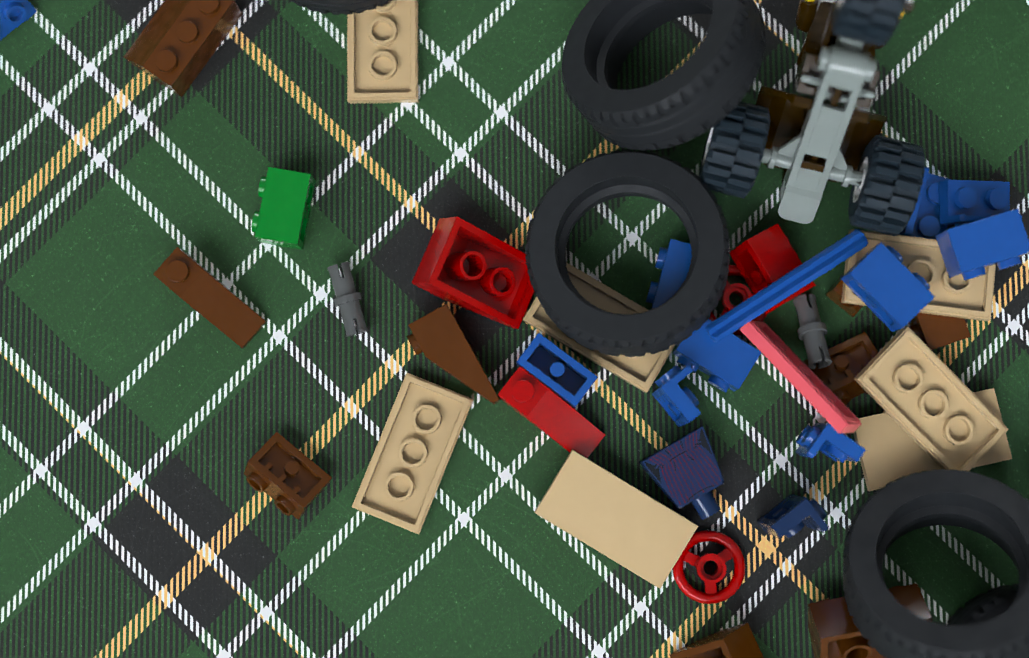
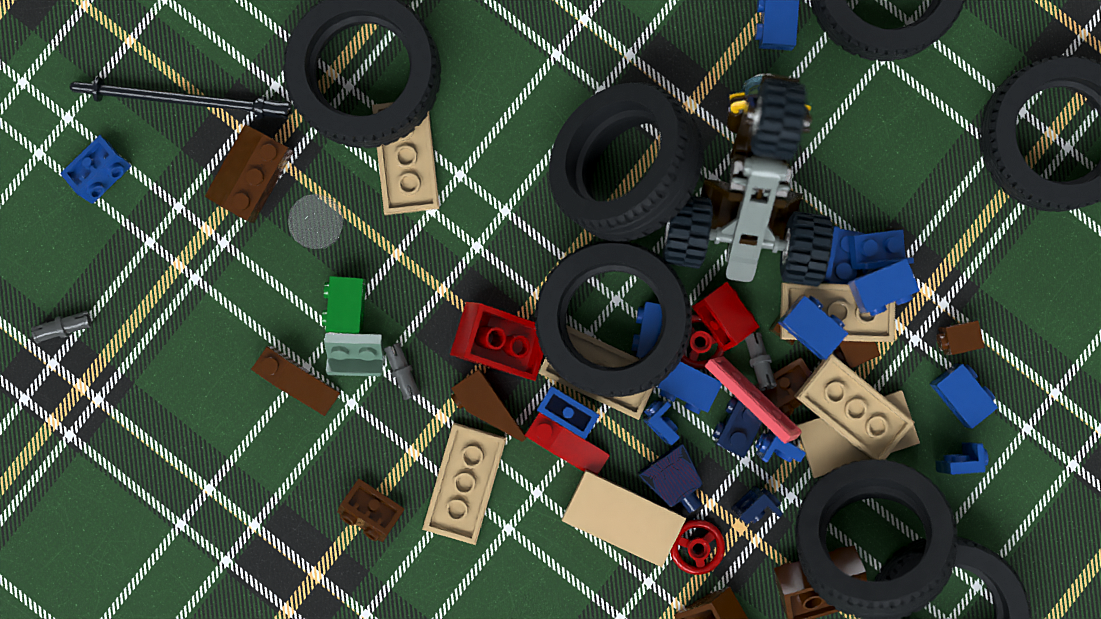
camera: 10 degrees left, 5 degrees up
(259, 101) = (315, 221): none -> clear tile
(289, 270) = (354, 354): none -> sand green bracket
(776, 416) = (737, 429): none -> dark blue bracket
(786, 285) = (736, 332): blue axle -> none

